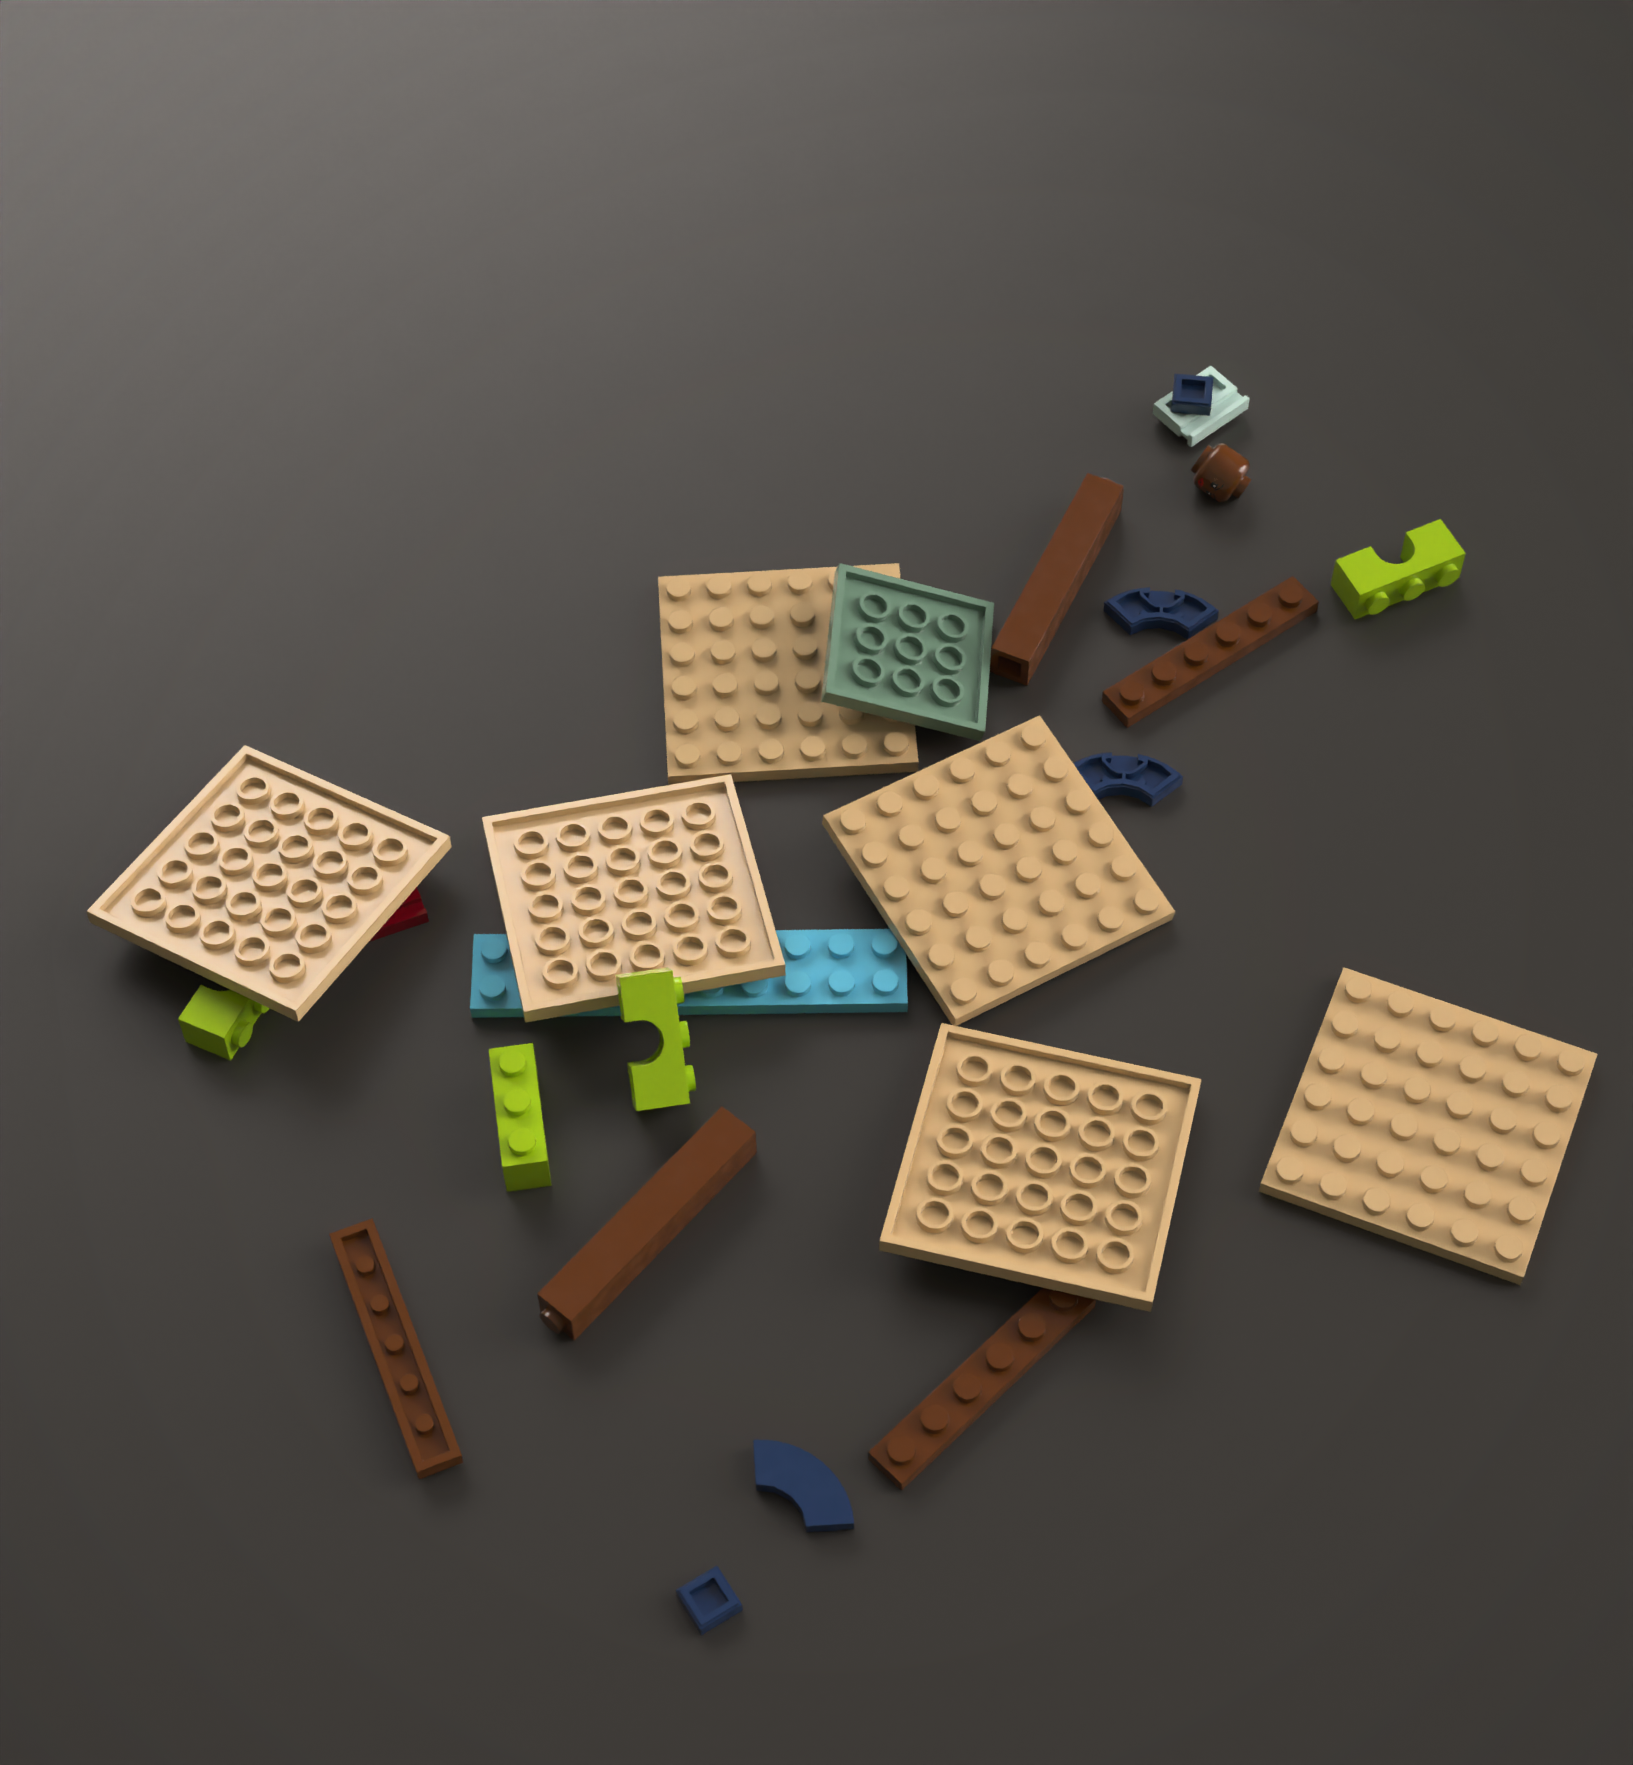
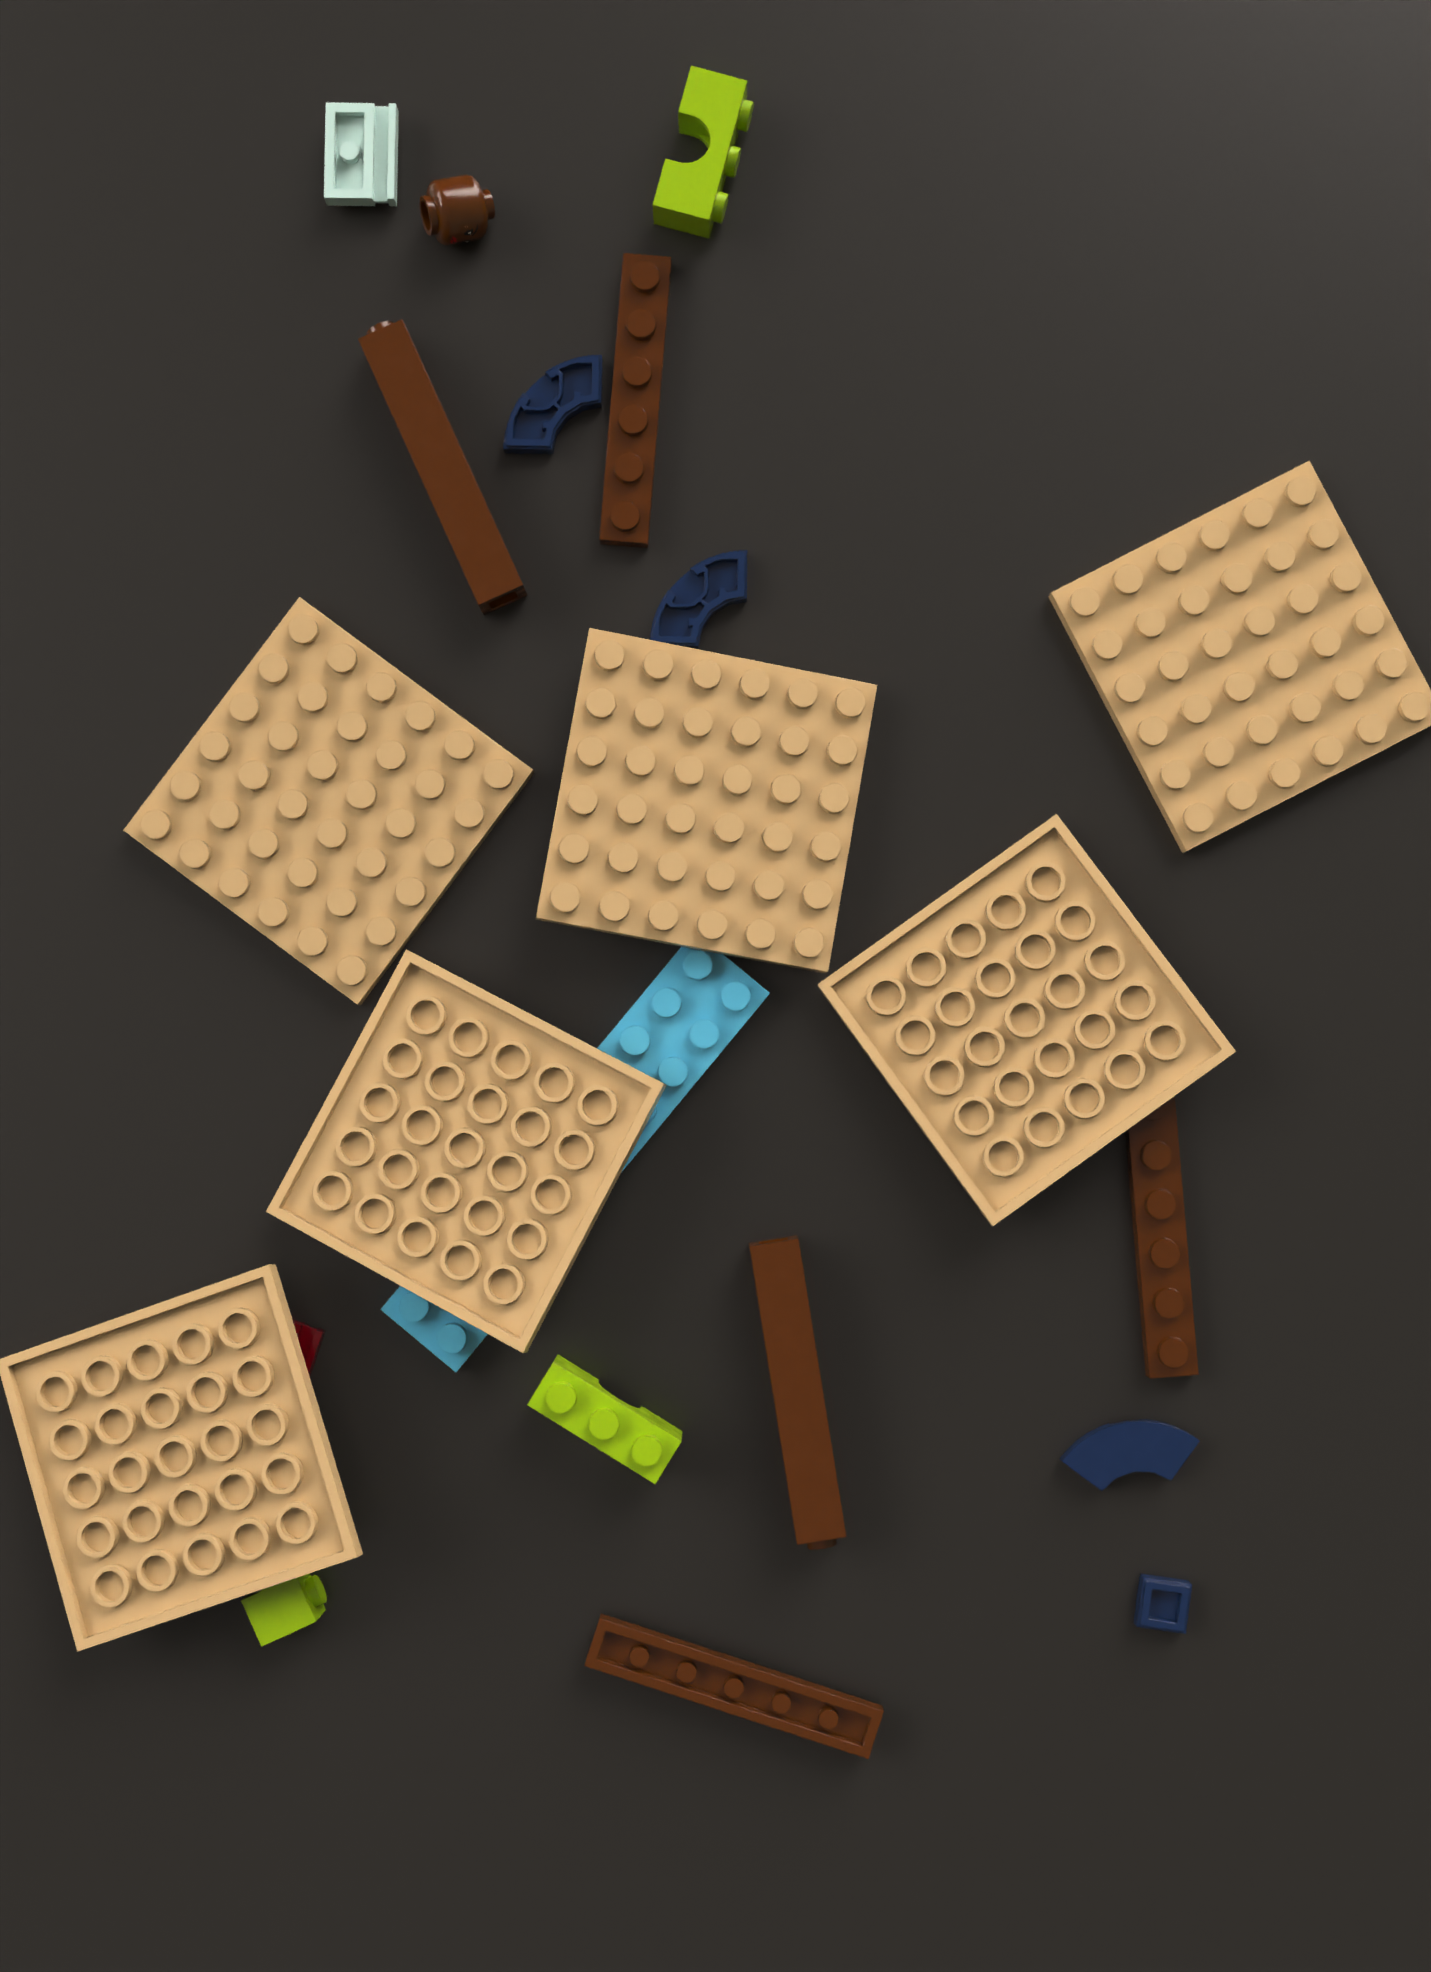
camera: 50 degrees left, 30 degrees up
(662, 1077) = (610, 1240): lime arch -> none
(908, 652) = (416, 683): sand green plate -> none
(1192, 394) = (348, 154): dark blue tile -> none

